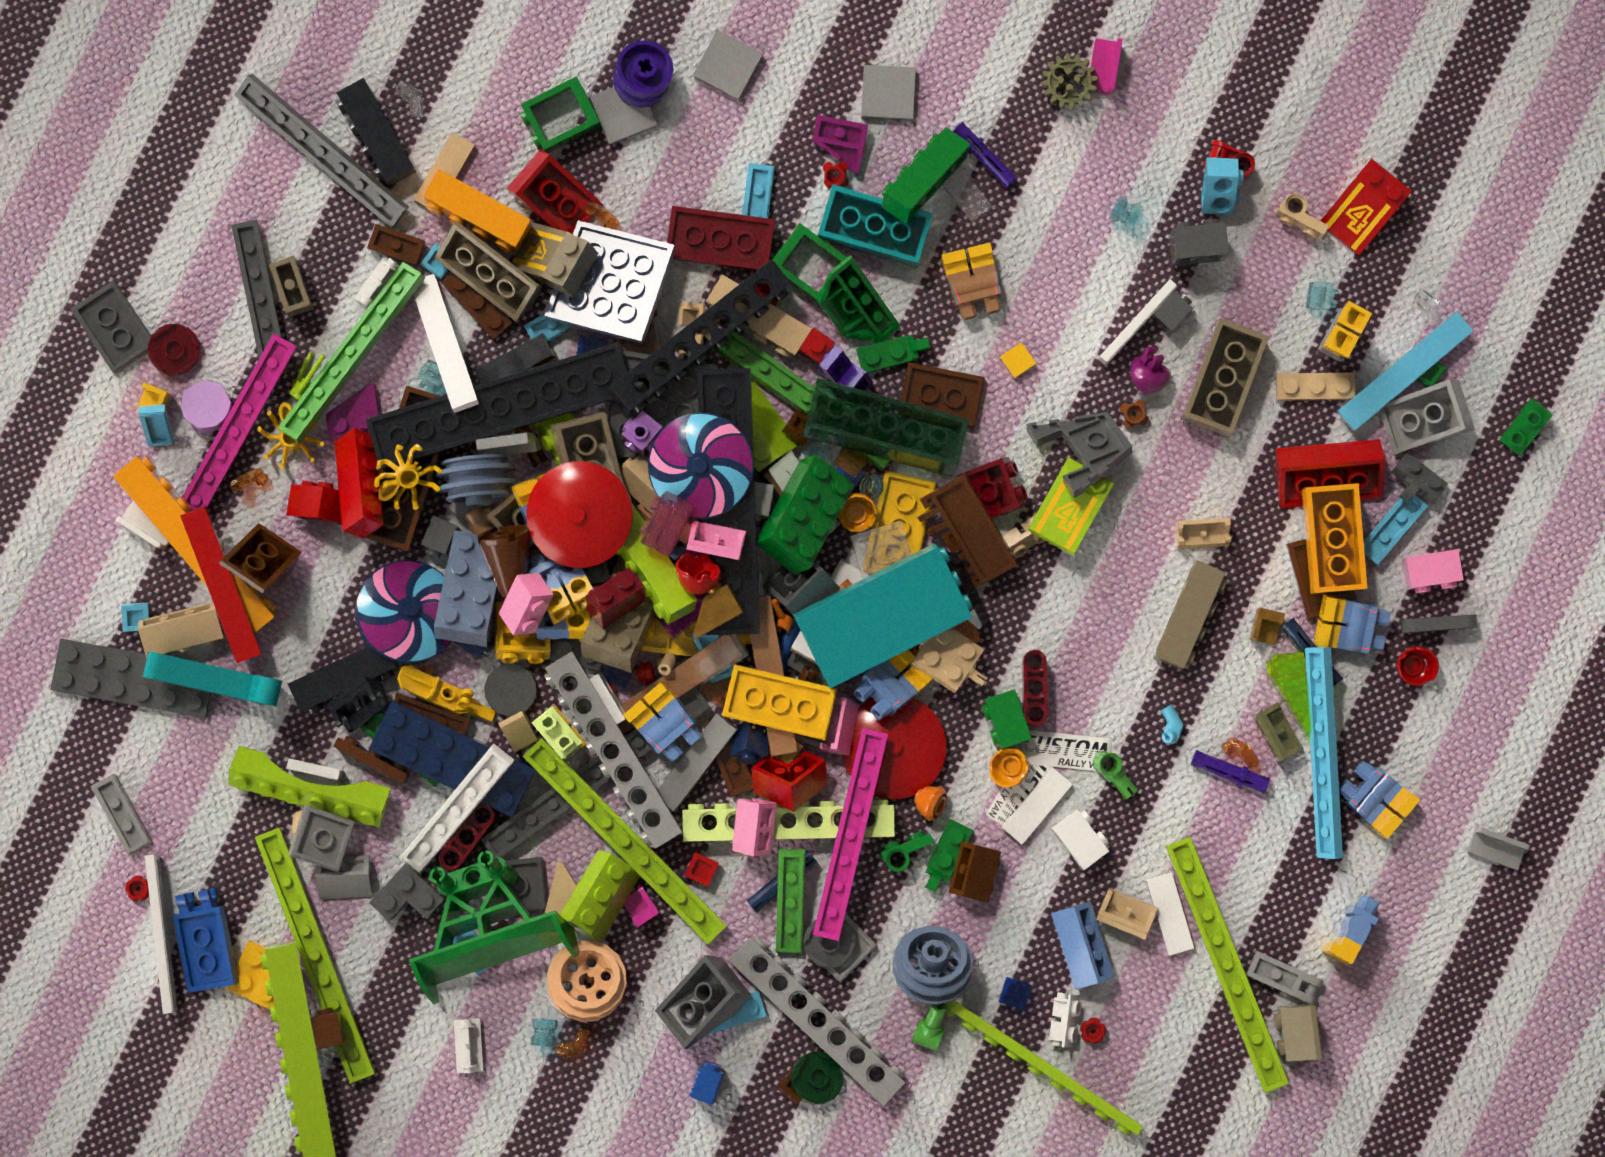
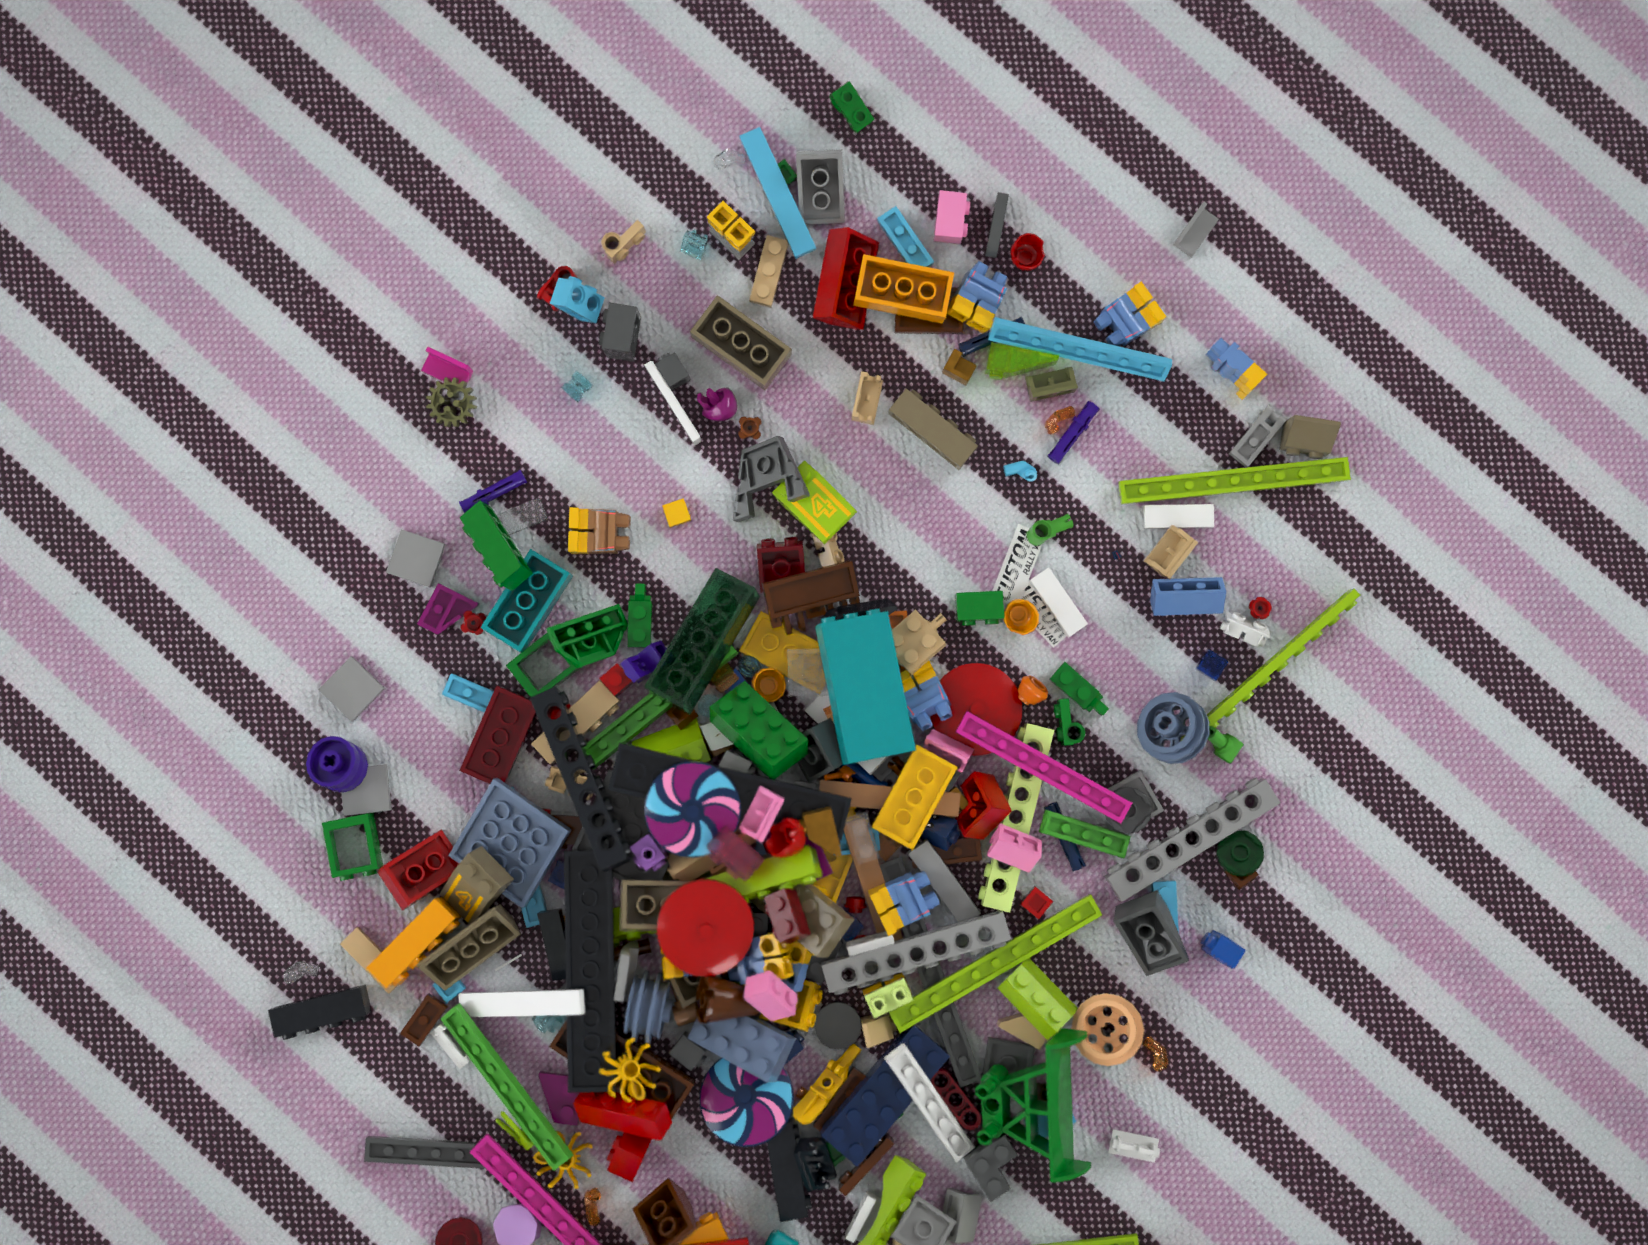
camera: 75 degrees left, 0 degrees up
(291, 286) = (433, 1123): dark tan brick -> none
(321, 150) = (322, 1063): dark grey plate -> none
(487, 315) = (505, 958): reddish brown plate -> none
(544, 1038) = (1140, 1077): clear light blue wheel -> none
(600, 213) = (447, 834): clear orange arm -> none
(641, 906) = (1055, 963): dark pink panel -> none
(666, 664) = (853, 884): tan arm -> none
(943, 391) = (685, 582): reddish brown tile -> none
(975, 872) = (1102, 670): reddish brown brick -> none
(1039, 675) = (947, 576): dark red beam -> none
(1080, 838) = (1096, 573): white brick -> none
(1365, 206) = (629, 185): red slope -> none
(1418, 479) = (871, 207): dark grey hinge -> none

